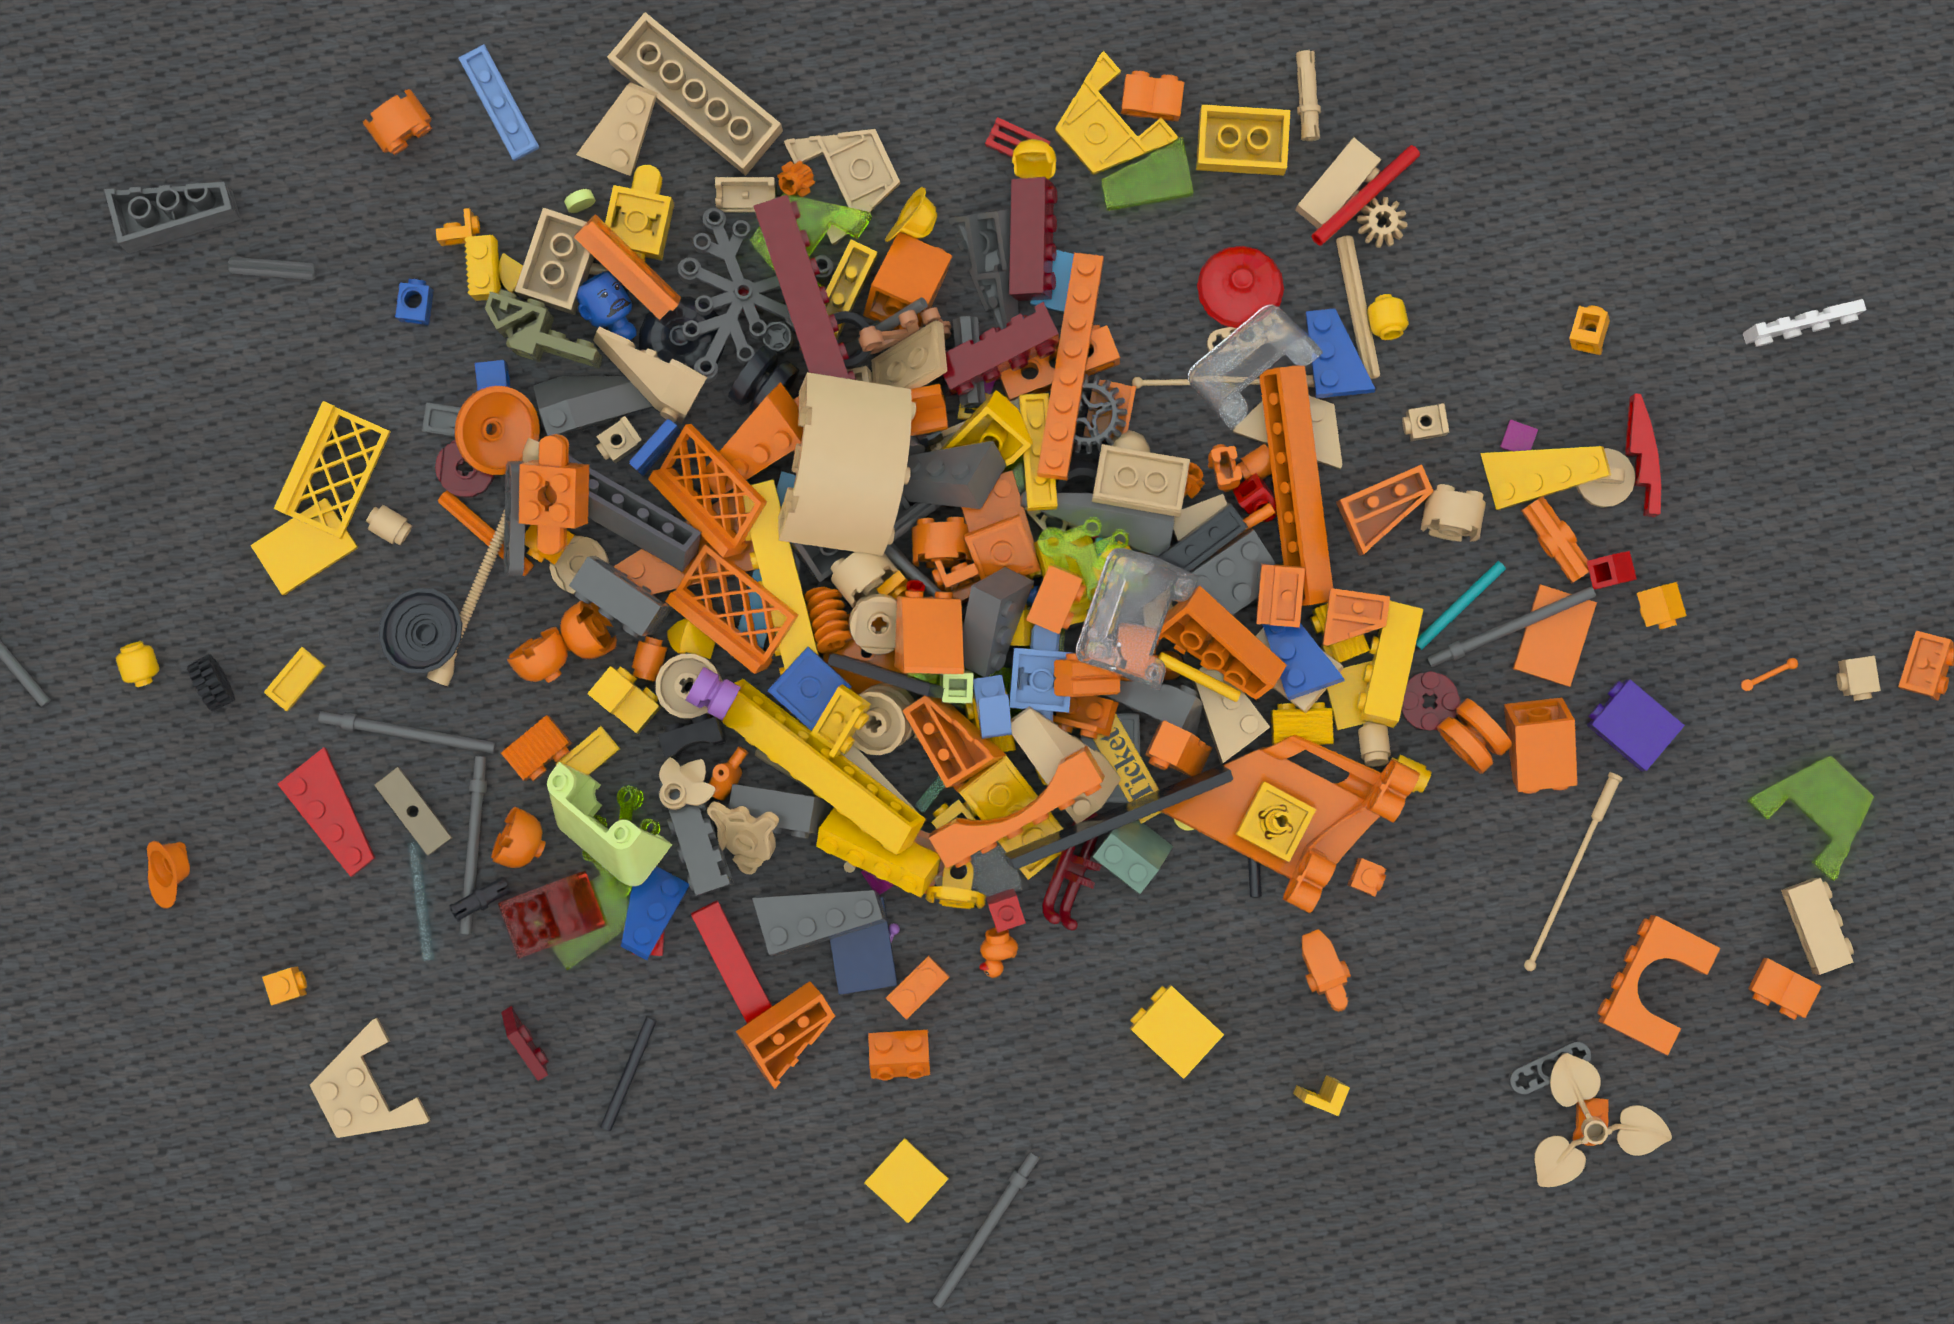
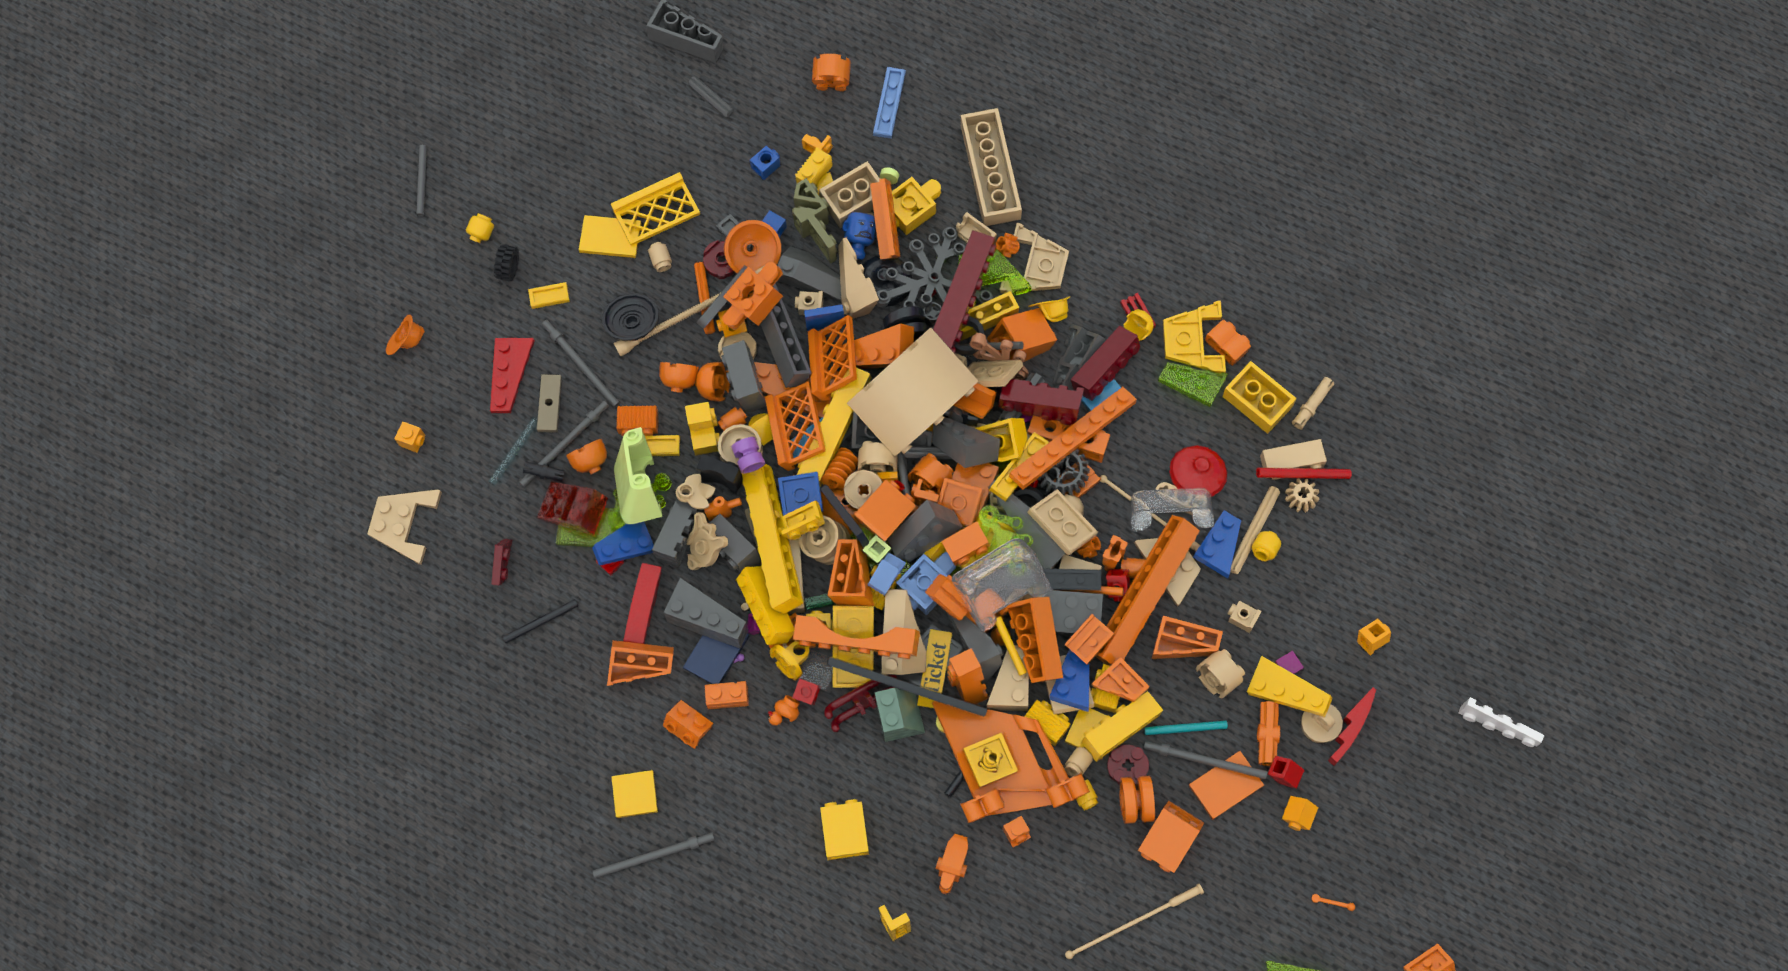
camera: 40 degrees right, 15 degrees down
(621, 131) = (939, 156): tan wing -> none
(1089, 714) = (935, 624): orange bracket -> none
(1634, 724) = (1233, 867): dark purple brick -> none
(1858, 677) = (1383, 942): tan brick -> none

